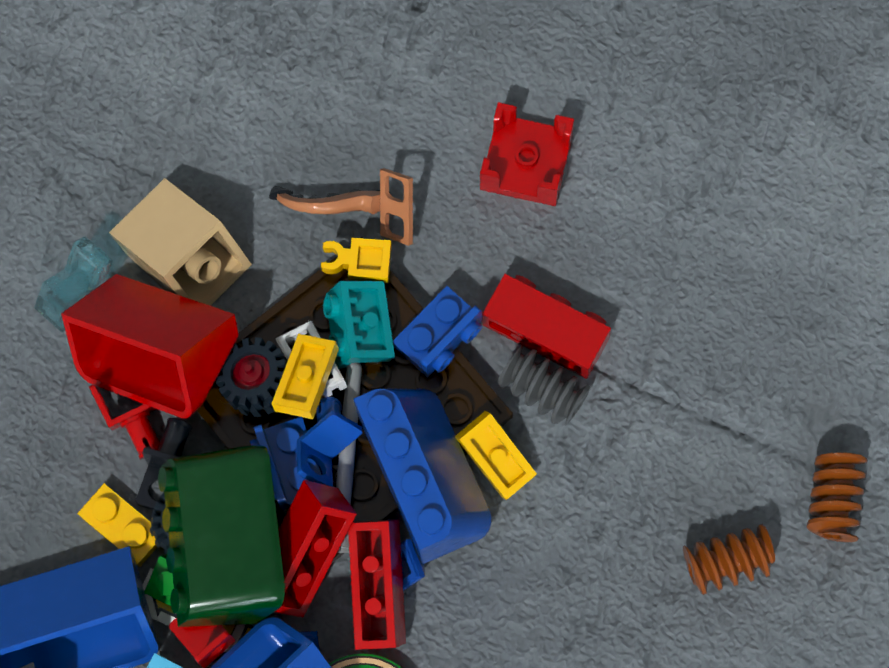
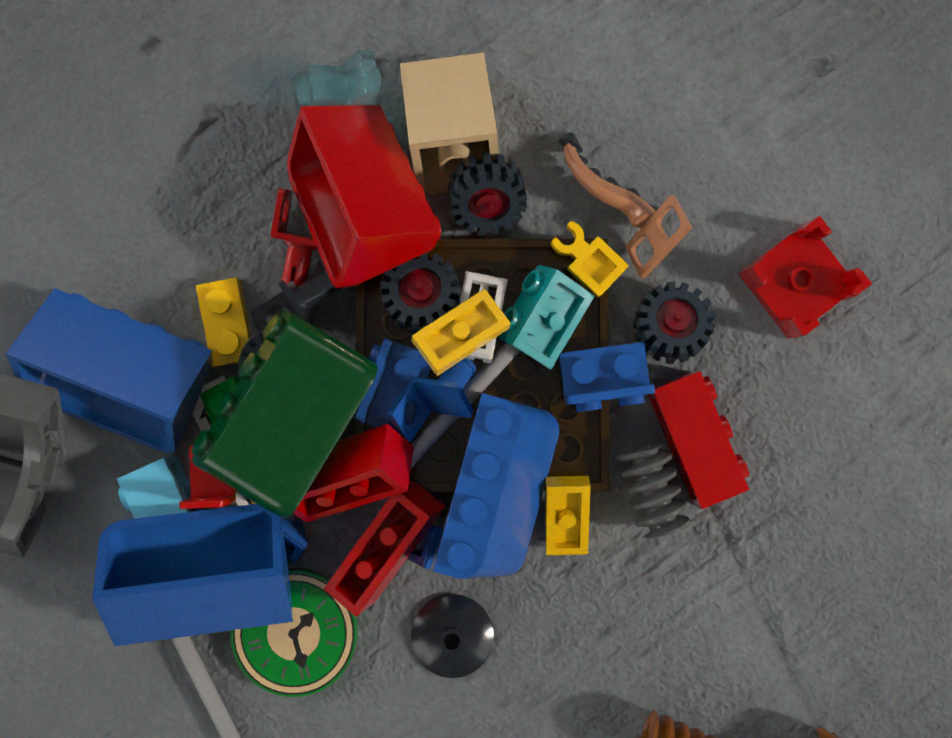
camera: 30 degrees right, 15 degrees up
(247, 273) = (487, 194): none -> black wheel
(459, 257) = (674, 322): none -> black wheel
(487, 644) = (452, 615): none -> black dish

